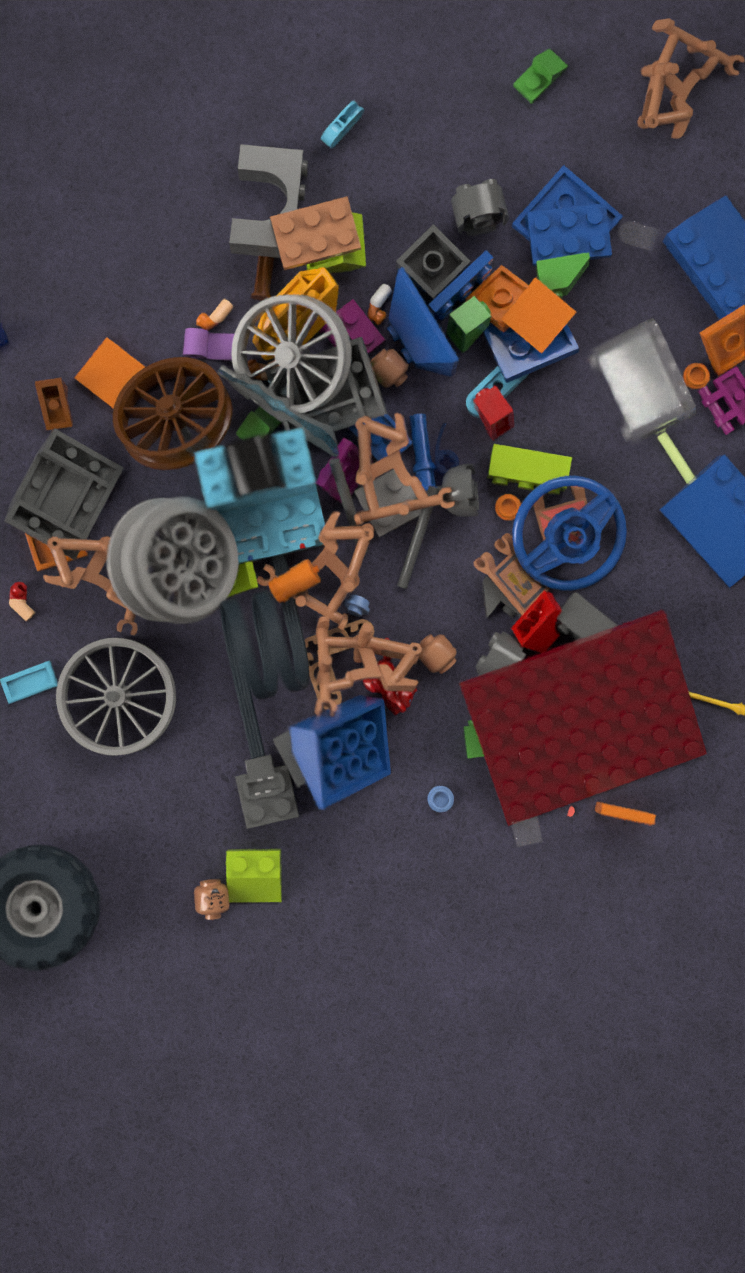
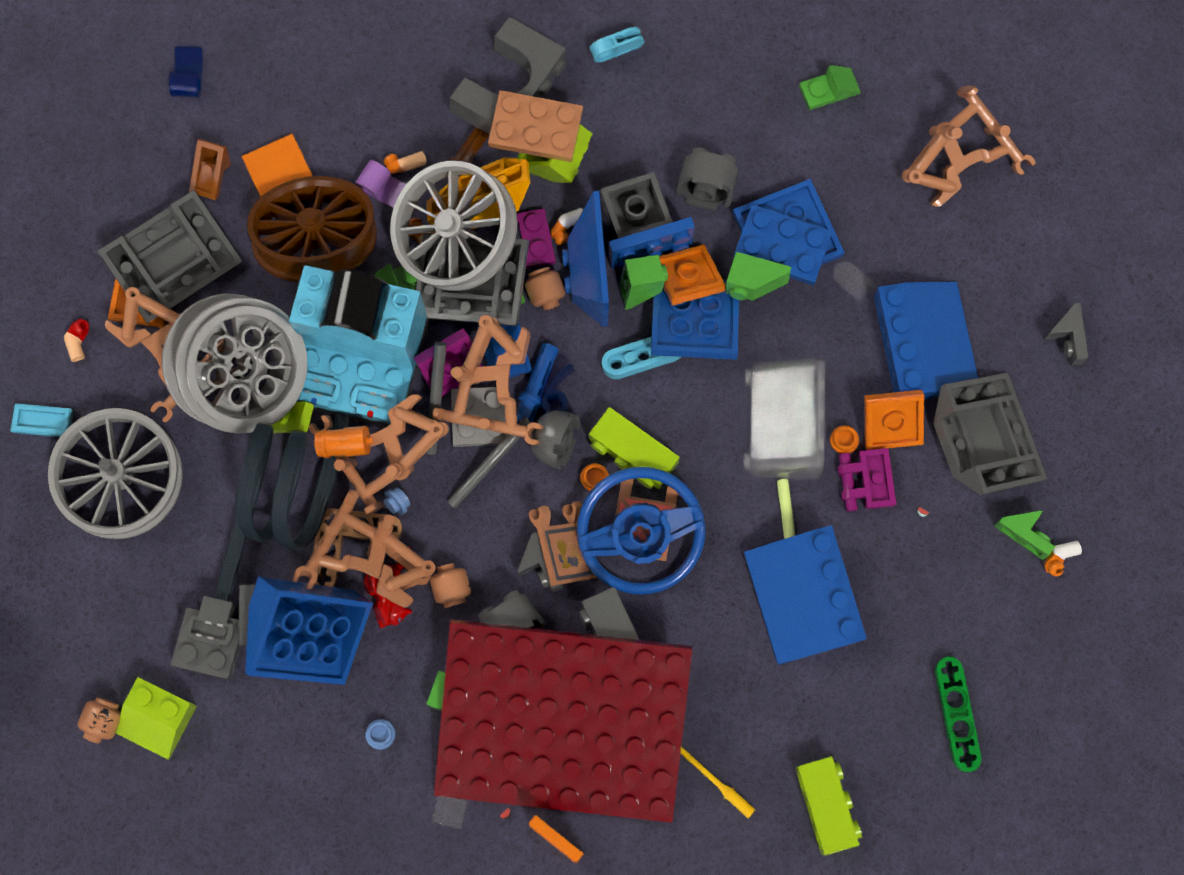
camera: 25 degrees right, 10 degrees down
(279, 407) = (415, 270): dark grey sword -> none
(494, 411) = (624, 377): red arch -> none
(537, 625) = (559, 604): red arch -> none
(538, 315) = (712, 303): orange tile -> none

